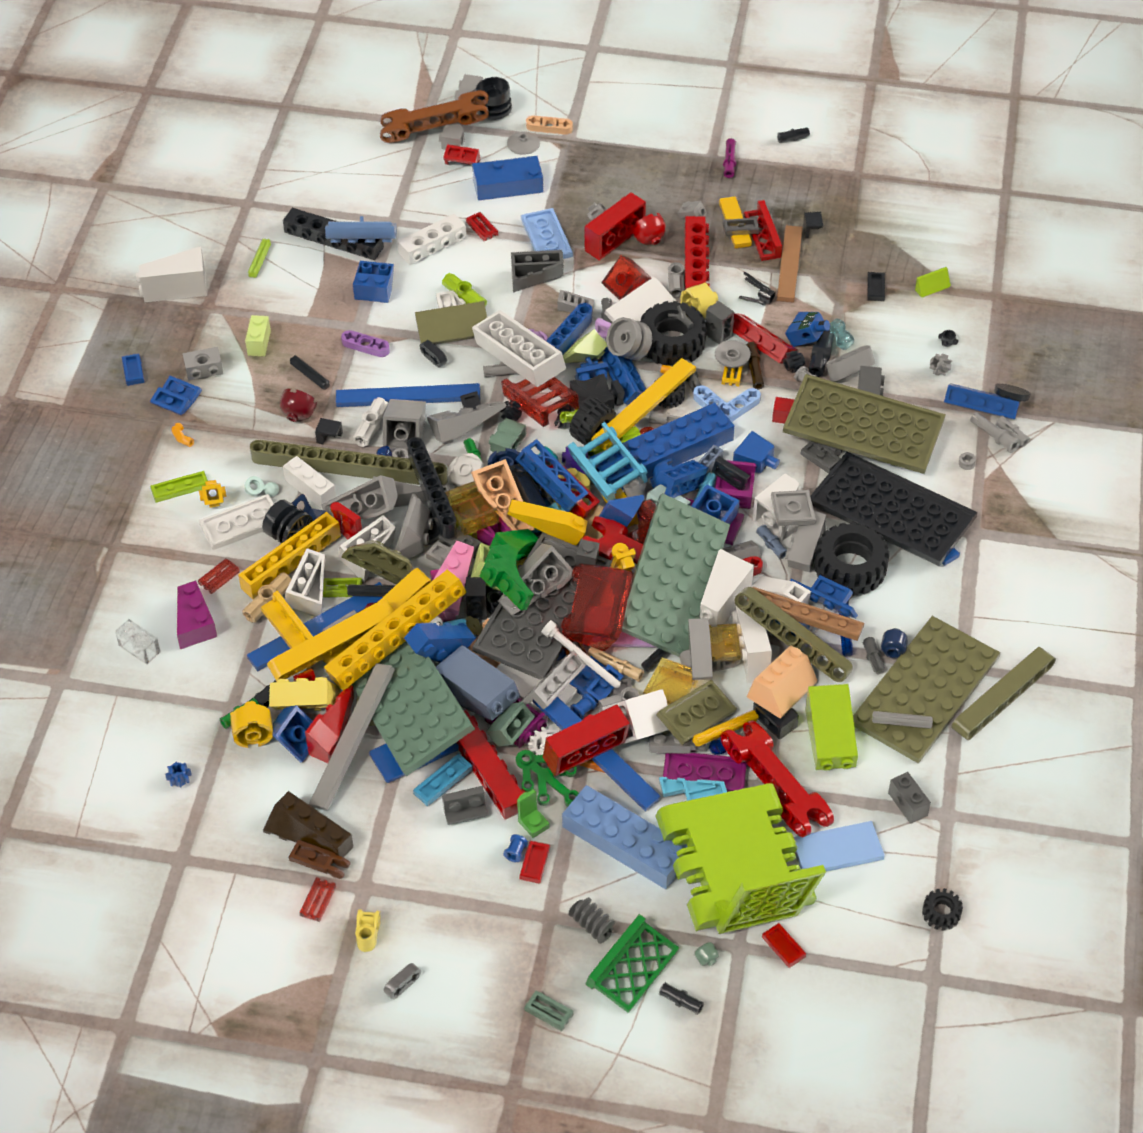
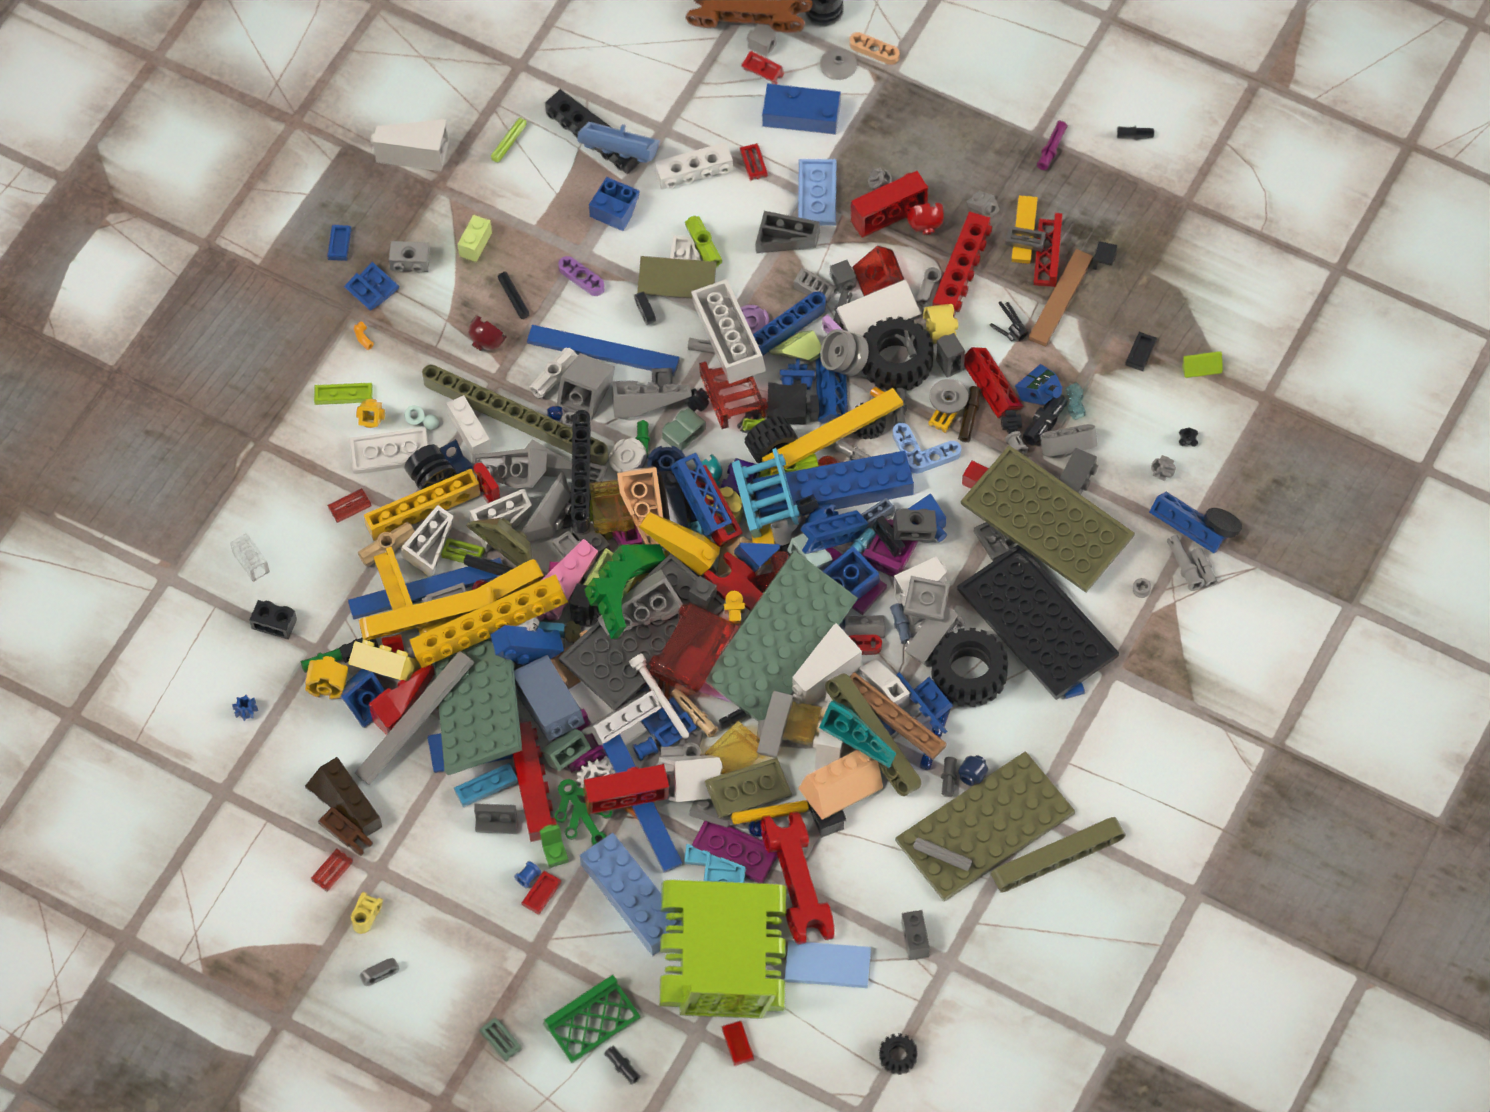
camera: 20 degrees right, 10 degrees up
(179, 689) = (270, 623): none -> black brick
(193, 616) = (309, 547): magenta wedge -> none
(327, 428) = (507, 370): black panel -> none
(592, 919) = (569, 966): dark grey piece -> none
(597, 289) = (843, 276): none -> dark grey brick
(651, 462) = (807, 505): none -> black plate
(706, 954) = (662, 1030): sand green piece -> none
(752, 455) = (906, 530): none -> dark grey brick
(777, 630) = (852, 730): none -> teal wedge
(831, 727) = (871, 842): lime slope -> none

